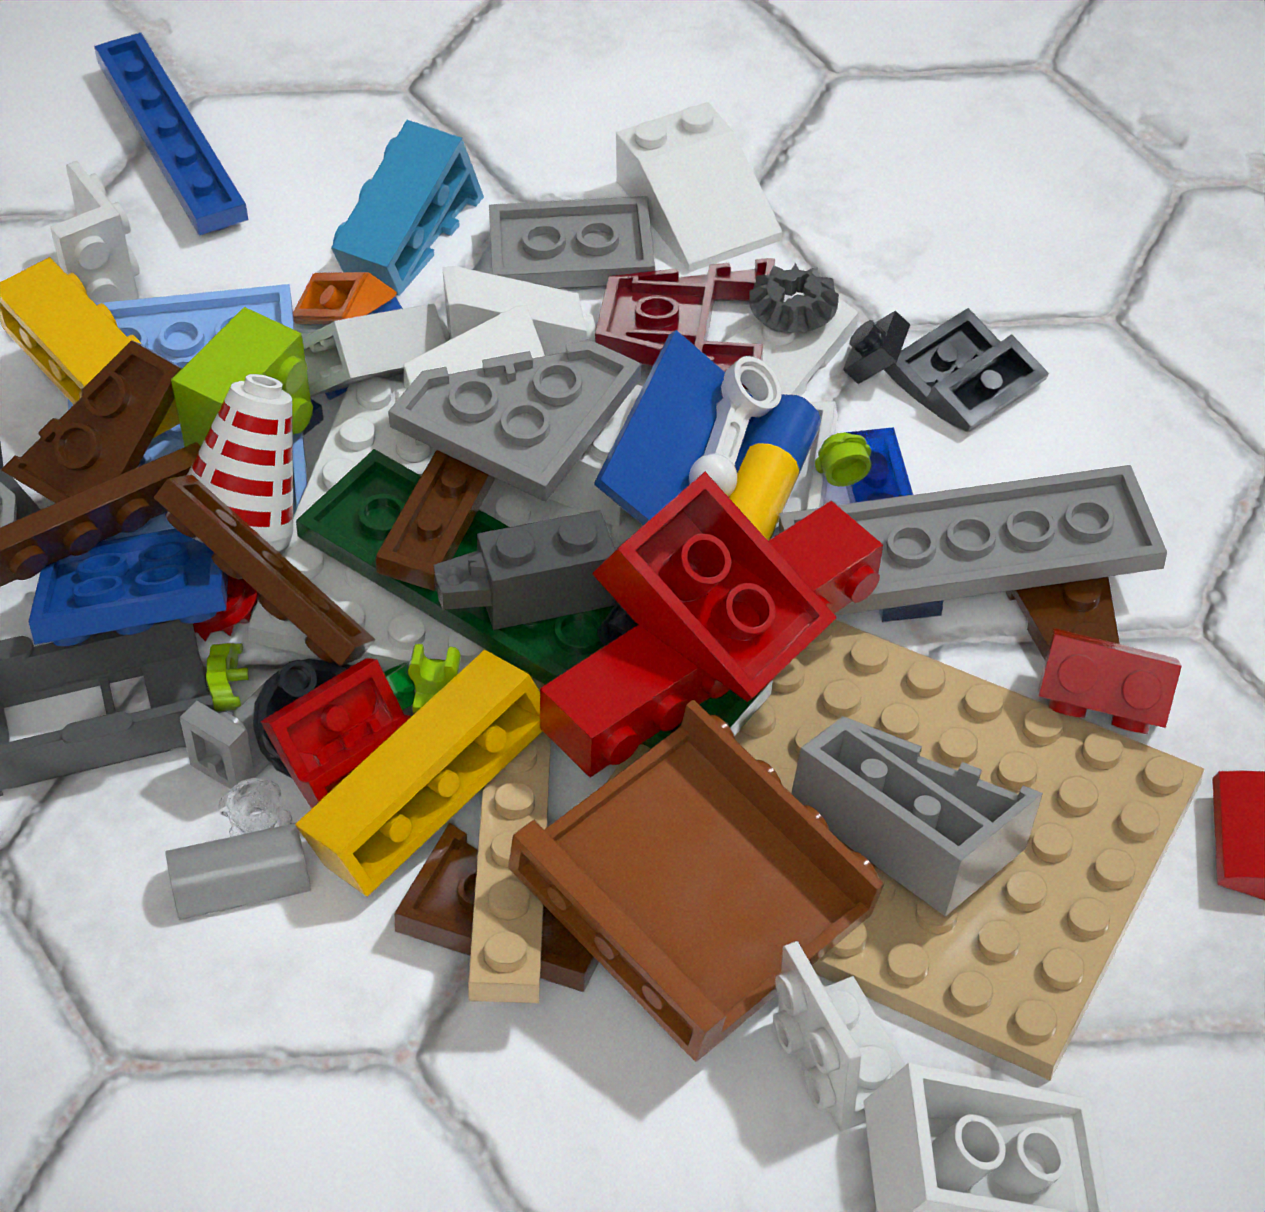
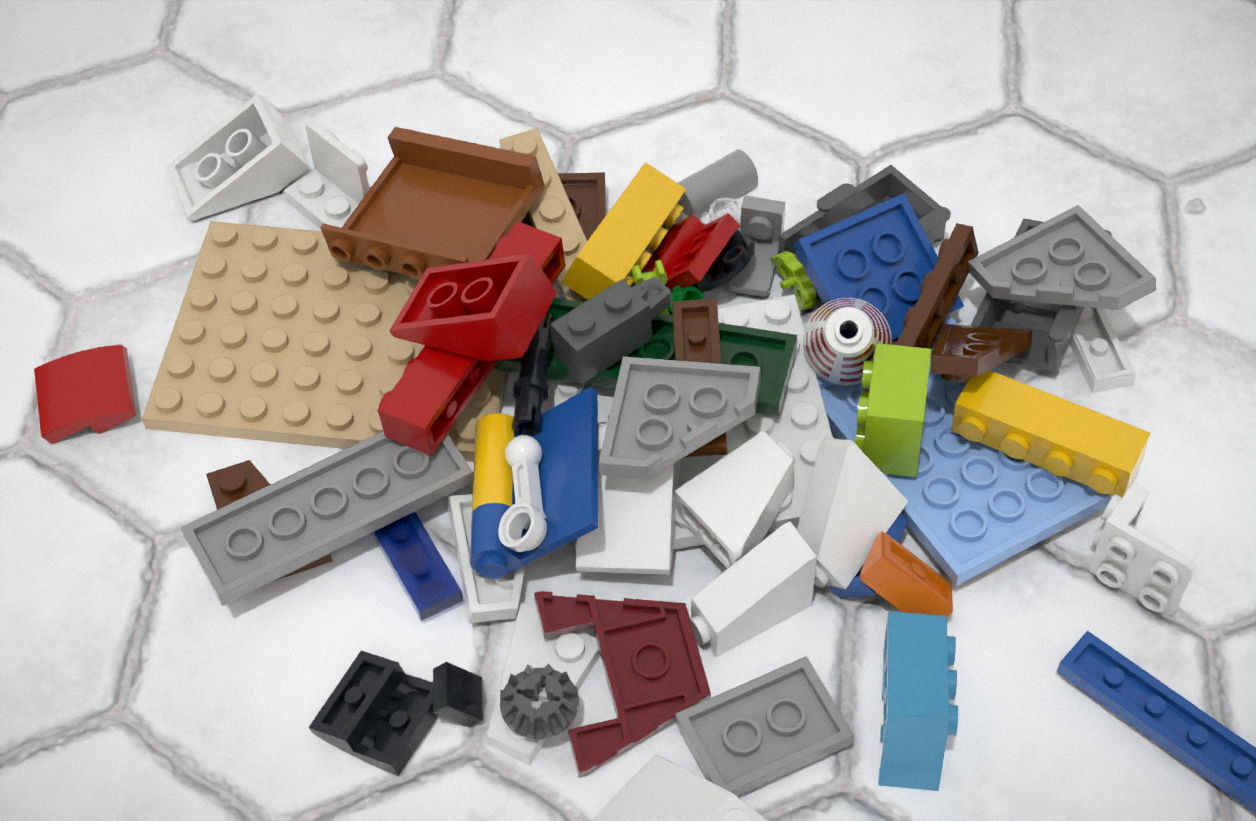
camera: 160 degrees right, 5 degrees up
(247, 555) = (790, 280): reddish brown plate -> none
(844, 459) = (442, 542): lime plate -> none
(911, 816) = (314, 282): light grey wedge -> none
(1109, 679) = (211, 437): red brick -> none

